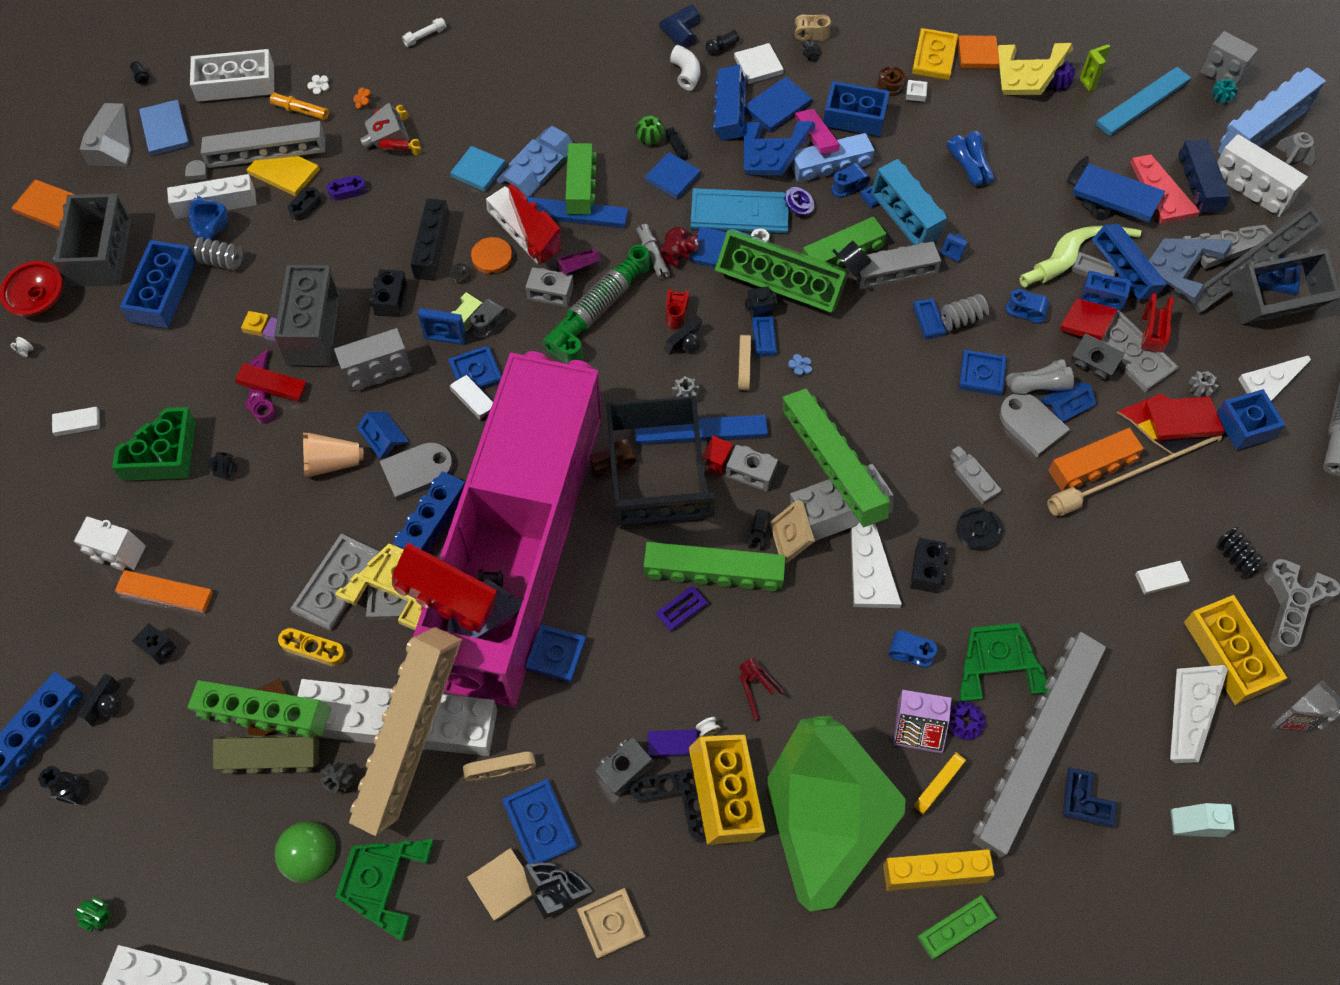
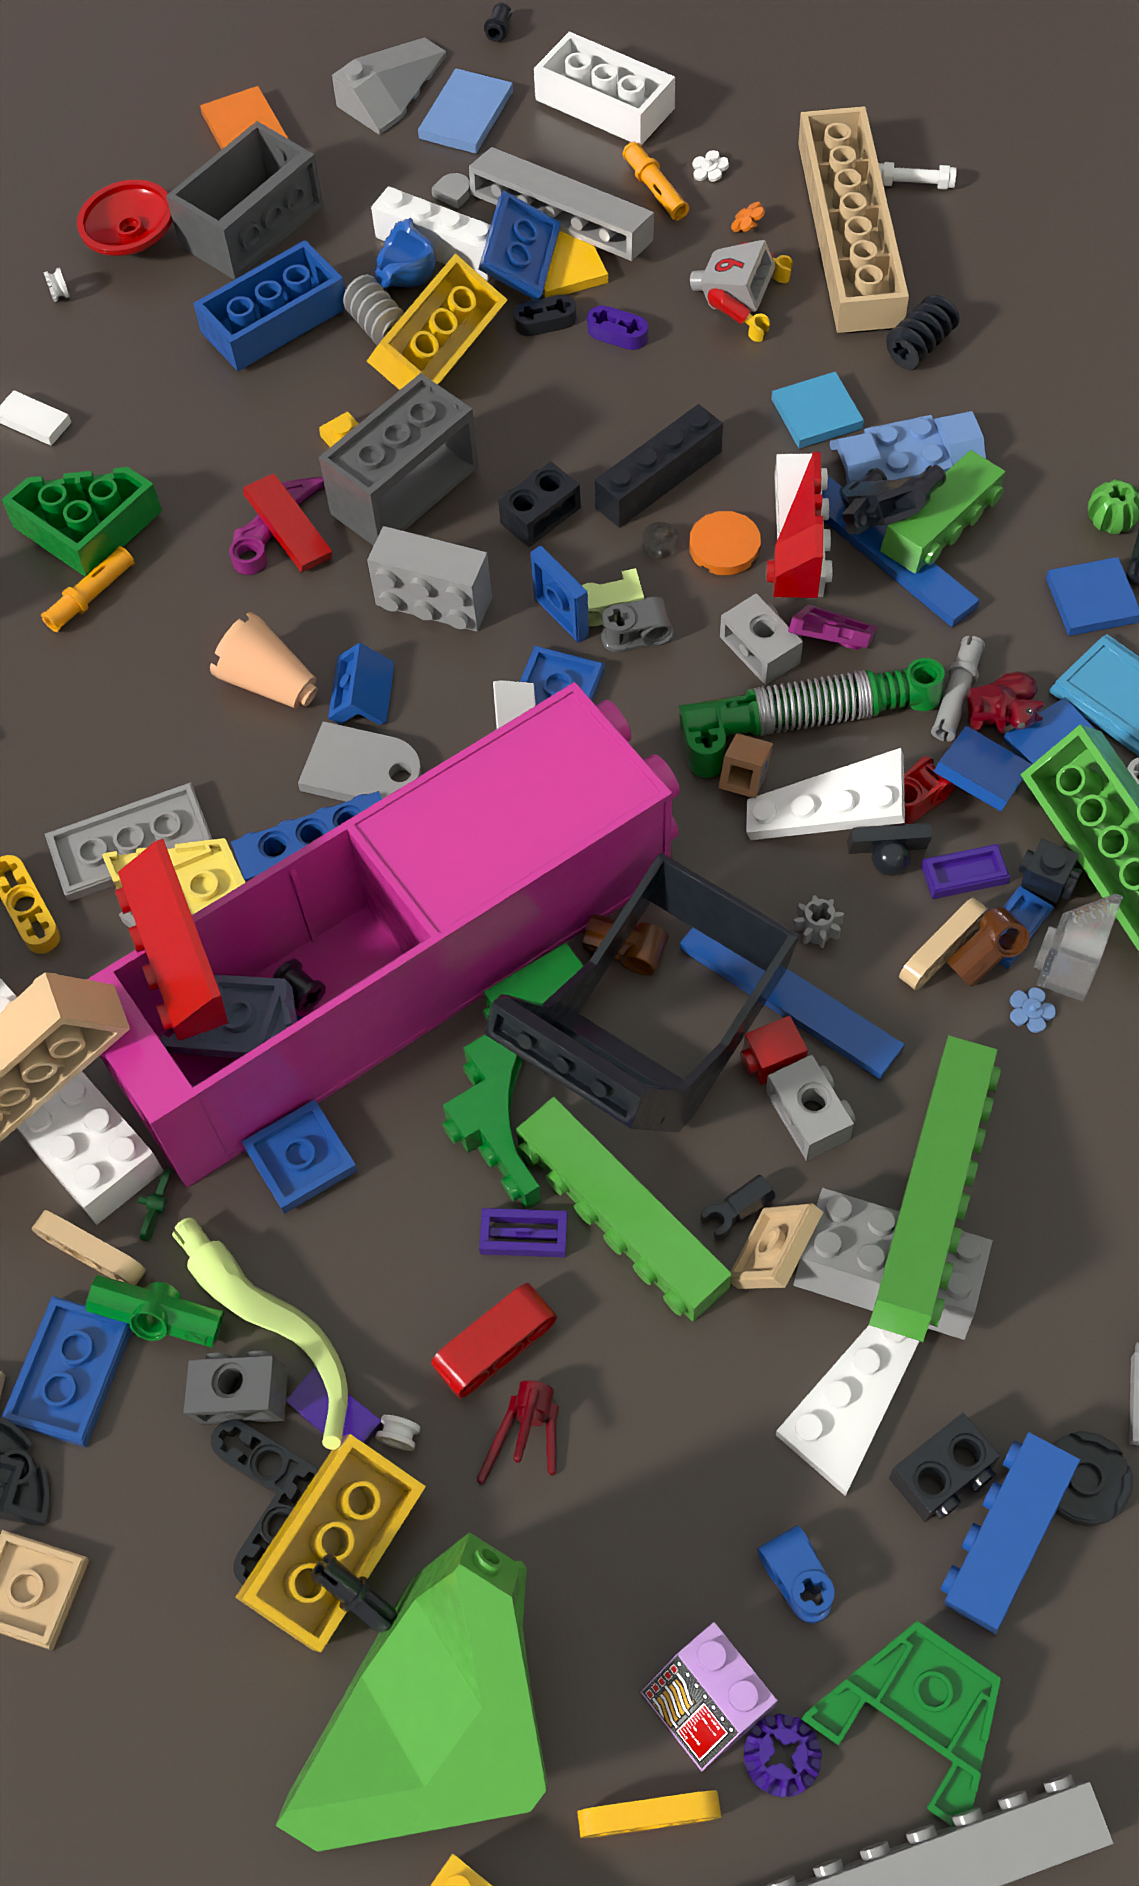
camera: 45 degrees right, 0 degrees up
(194, 490) = (76, 599): none -> light orange pin
(222, 465) = (134, 589): black gear -> none
(262, 242) = (438, 326): none -> yellow brick
(265, 177) = (519, 245): none -> blue tile
(416, 69) = (852, 220): none -> tan brick
(495, 103) = (922, 331): none -> black piece
(509, 723) = (156, 1204): none -> dark green piece
(555, 189) = (883, 501): none -> black connector
(557, 765) = (154, 1311): none -> green piece
(572, 728) = (225, 1282): none -> yellowish green animal
(595, 345) = (745, 765): none -> medium nougat brick
(604, 550) = (483, 1113): none -> green arch
(648, 333) = (837, 800): none -> white wing
(696, 278) = (982, 768): none -> blue tile
(712, 659) = (494, 1340): none -> red beam
(724, 327) = (965, 871): none -> dark purple tile
(759, 796) = (354, 1593): none -> black axle
(765, 342) = (989, 946): none -> reddish brown piece
(802, 325) = (1076, 947): none -> clear slope
(974, 568) = (1010, 1533): none -> blue brick

